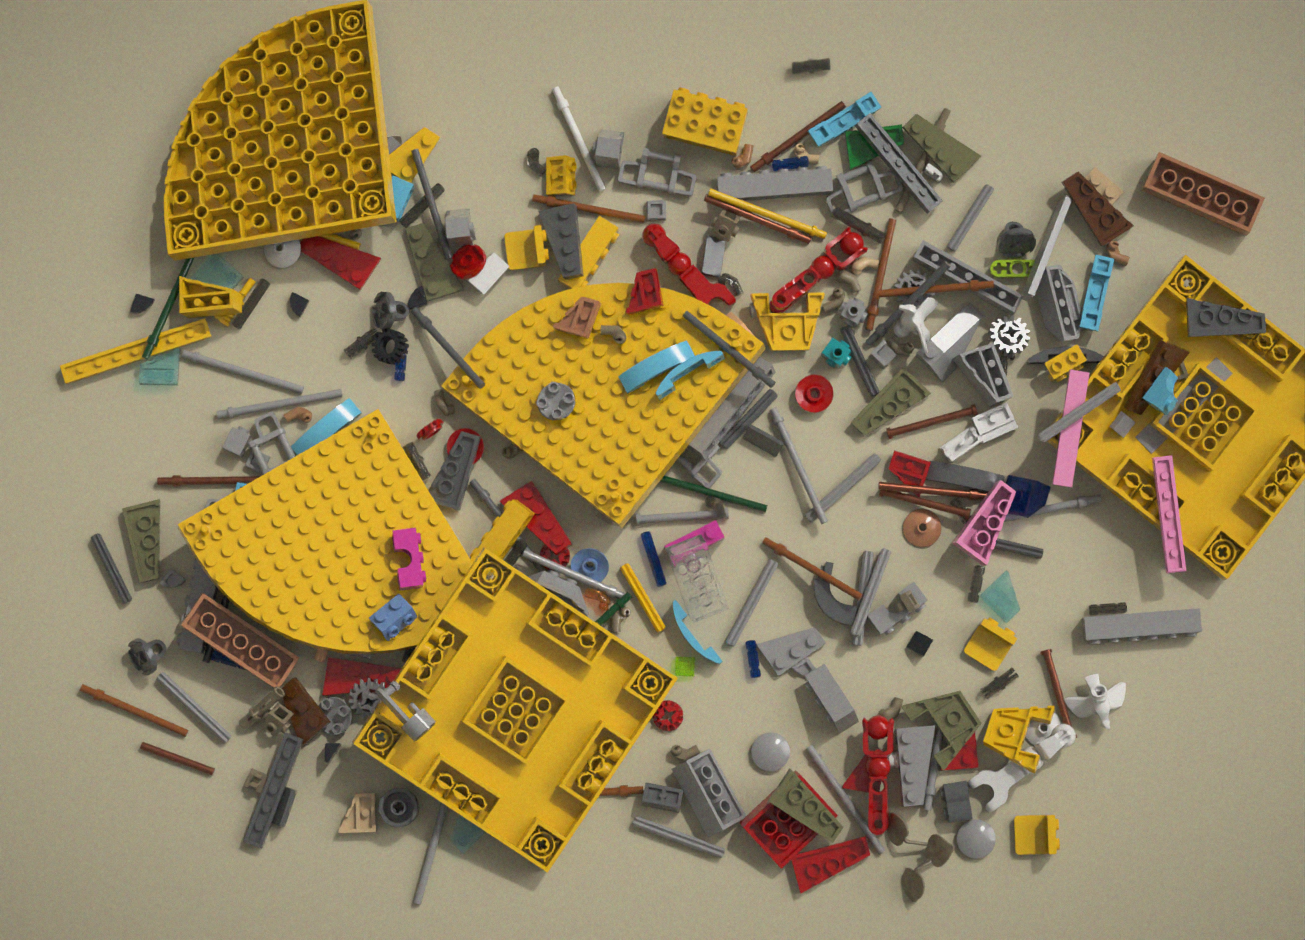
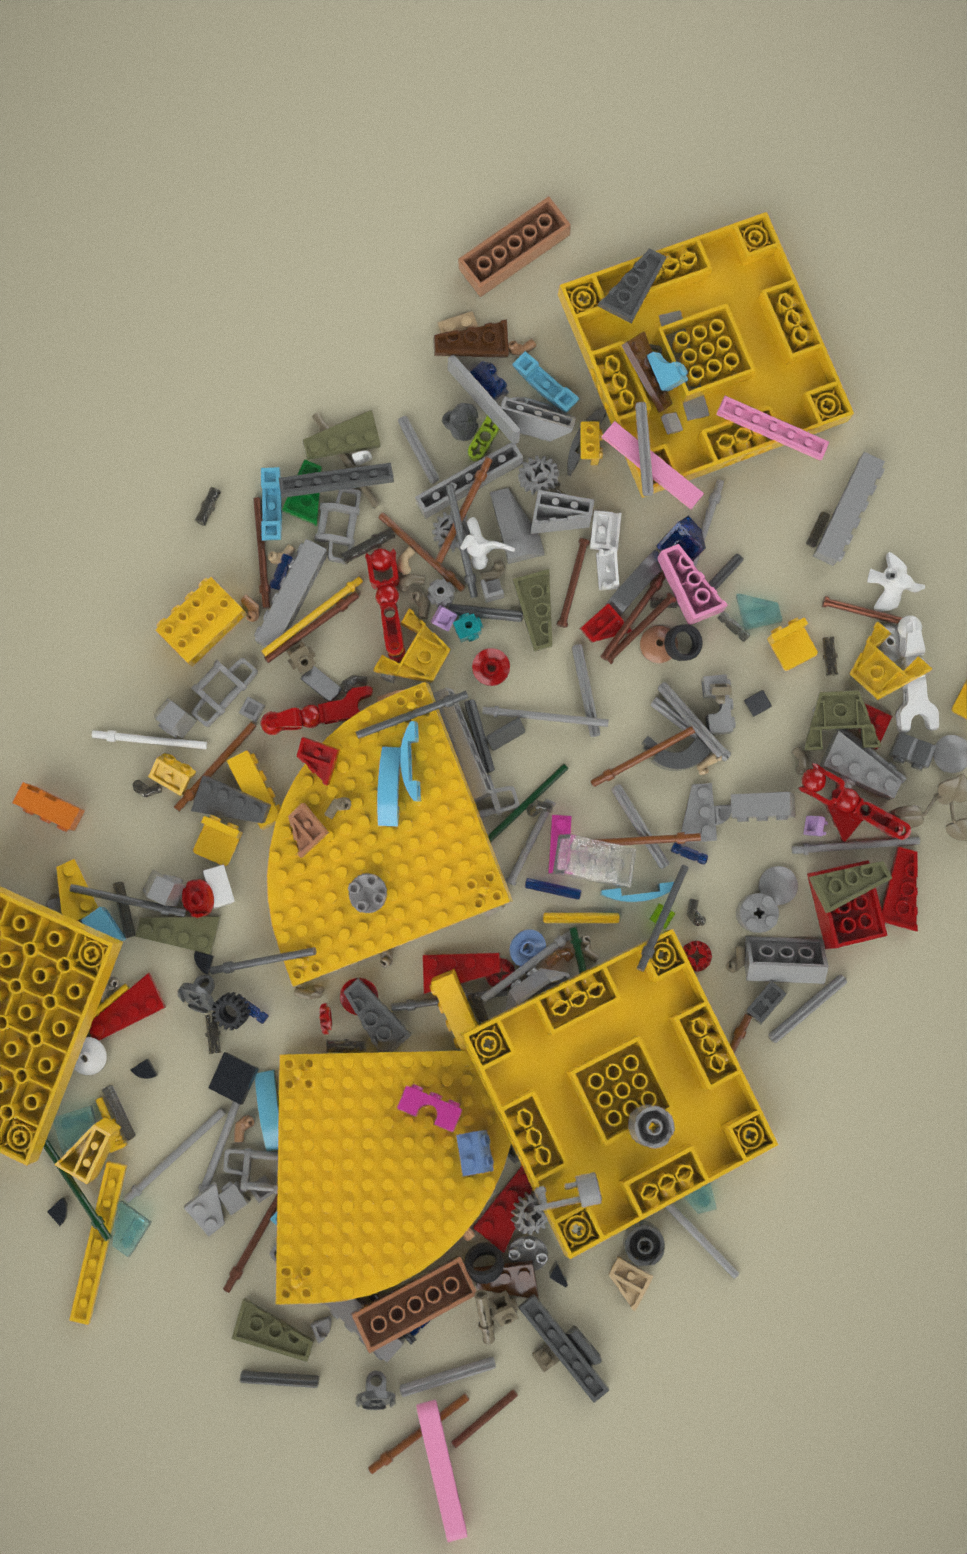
camera: 60 degrees left, 0 degrees up
(116, 745) = (441, 1470): none -> bright pink beam
(214, 425) = (206, 1209): none -> light grey wing
(300, 691) = (489, 1275): none -> black tyre
(335, 382) = (233, 1078): none -> black tile
(470, 90) = (48, 806): none -> orange wedge
(500, 760) = (661, 1131): none -> light grey brick
(646, 666) = (648, 950): none -> dark grey bar
(701, 693) = (693, 914): none -> clear smoke arm
(746, 745) = (768, 916): none -> light grey brick
(760, 641) = (680, 838): none -> dark orange bar
(832, 327) = (443, 618): none -> lavender tile
(840, 753) = (814, 826): none -> lavender tile
(841, 628) = (702, 767): none -> tan arm
(942, 559) = (696, 640): none -> black tyre
(1068, 243) = (486, 375): none -> clear blue bracket

